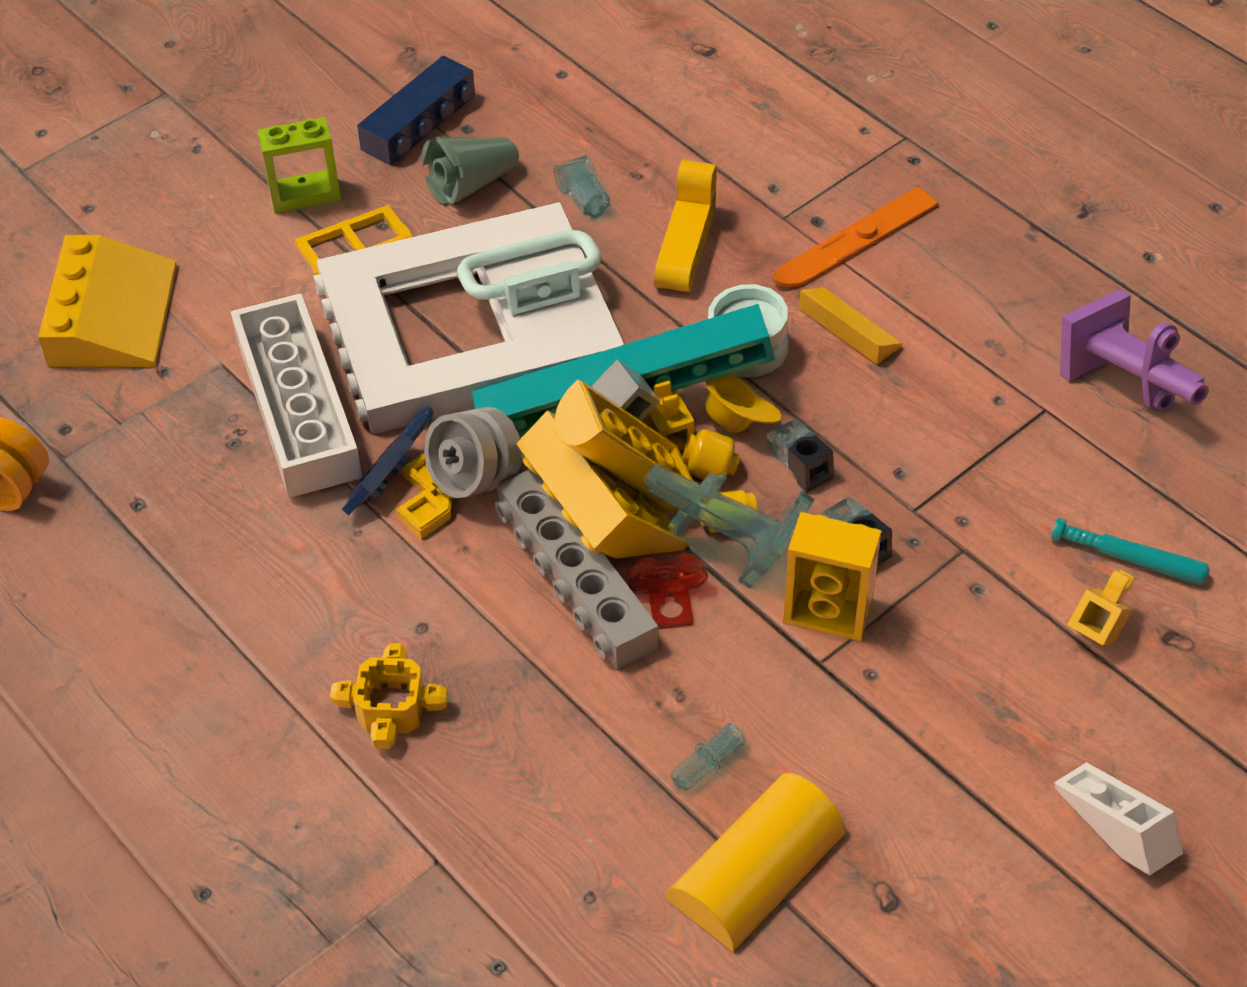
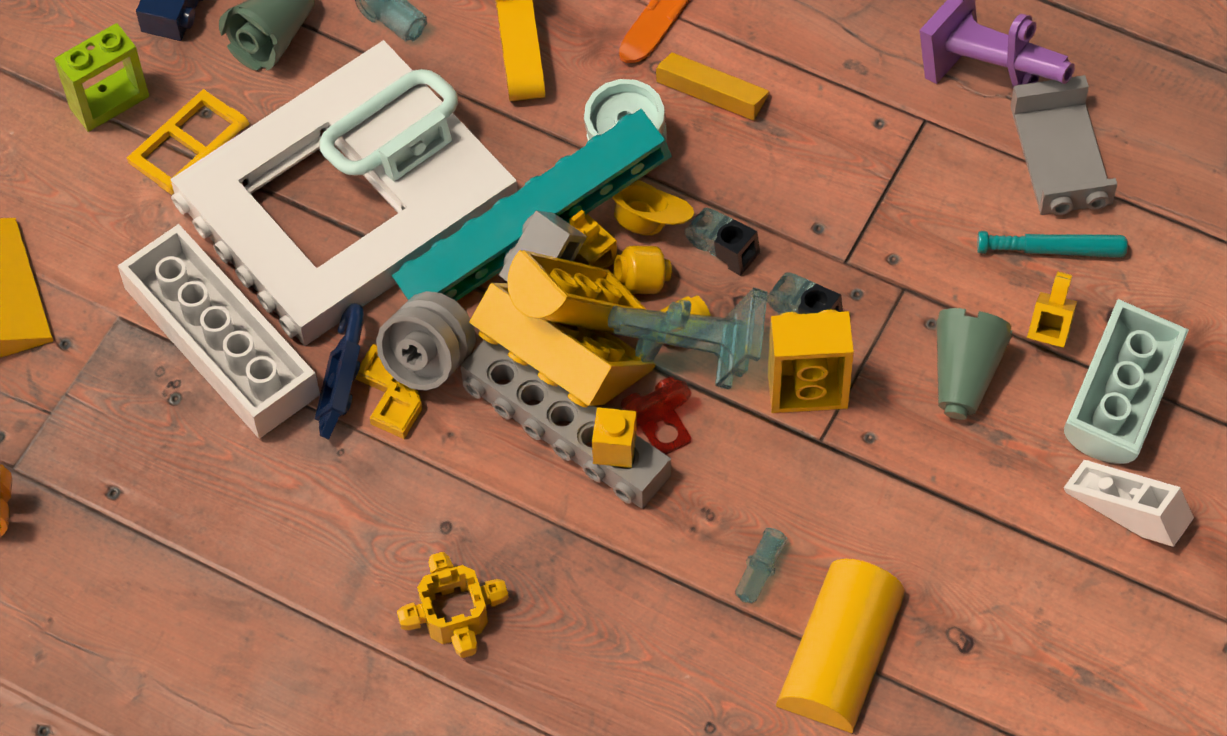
camera: 20 degrees left, 10 degrees up
(607, 585) = (614, 437): none -> yellow brick
(999, 625) = (967, 358): none -> sand green cone
(1152, 699) = (1124, 384): none -> light aqua brick
(1173, 466) = (1061, 146): none -> light grey panel

